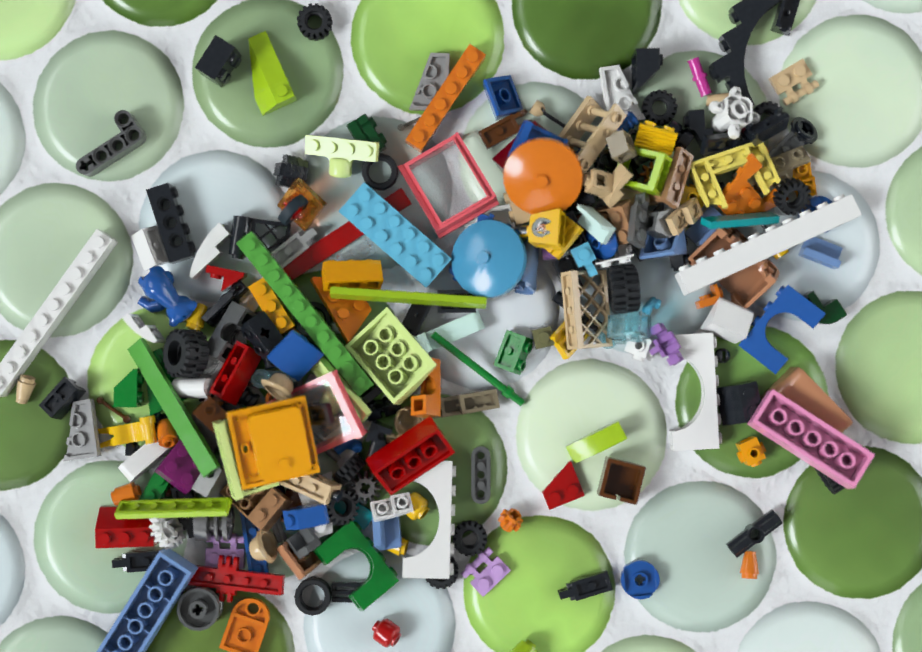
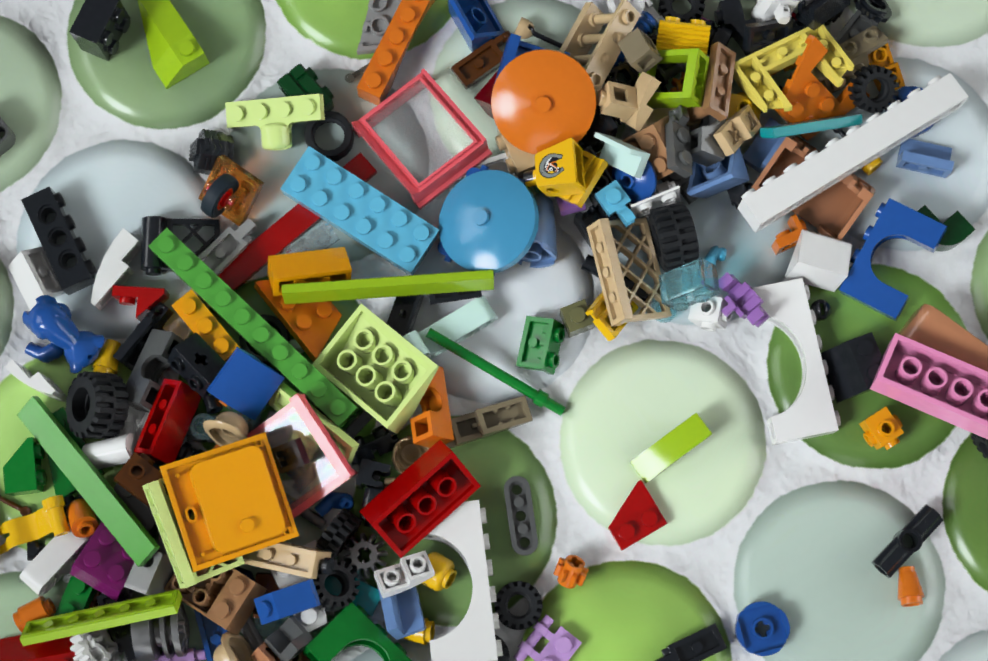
camera: 10 degrees left, 10 degrees down
(621, 479) = (713, 492): reddish brown piece -> none

